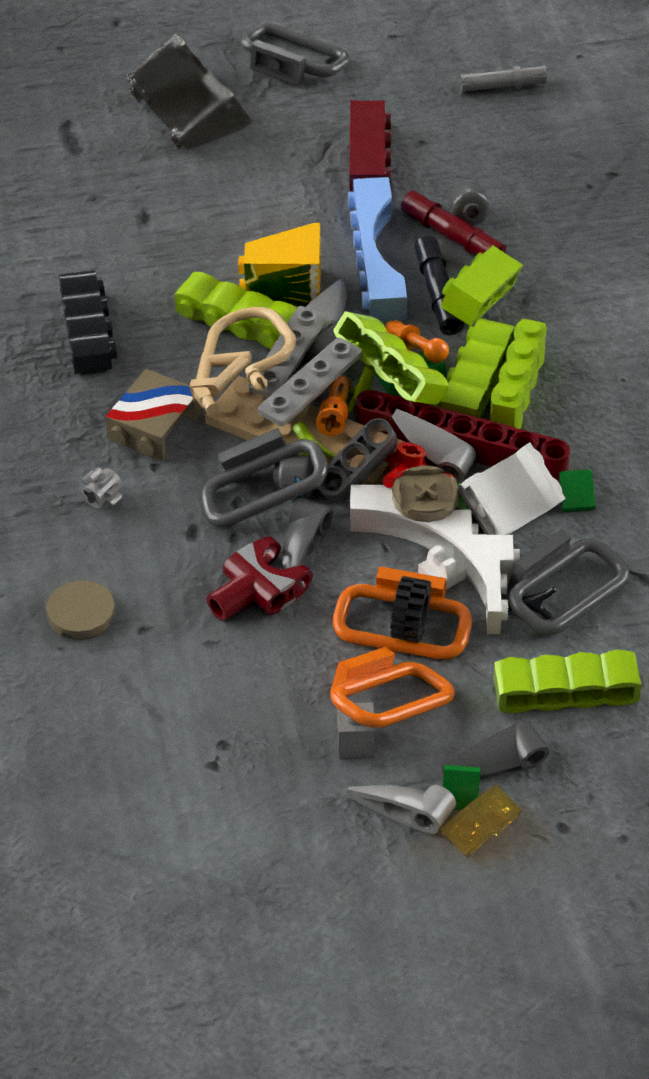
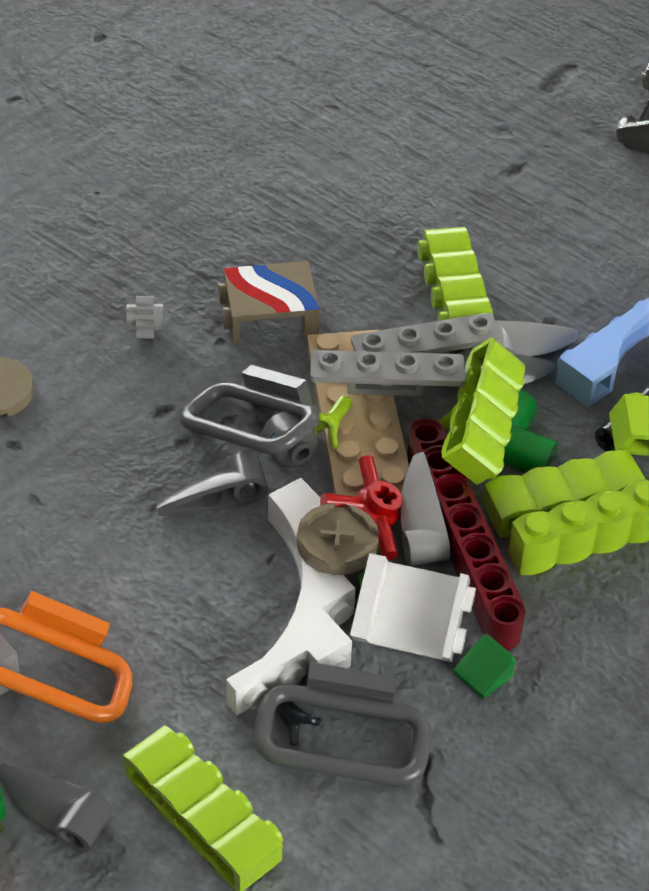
camera: 50 degrees right, 0 degrees up
(85, 321) = (338, 199): black brick -> none
(205, 388) = (363, 315): tan piece -> none
(257, 581) = (129, 485): dark red connector -> none
(284, 265) = (534, 278): yellow slope -> none
(338, 398) = (386, 411): orange pin -> none
(360, 444) = (335, 463): dark grey beam -> none
(385, 590) = (212, 606): orange bar -> none
(410, 609) = (172, 614): black tyre -> none
(435, 349) = (551, 417): orange pin -> none
(443, 565) = (271, 614): white tile -> none

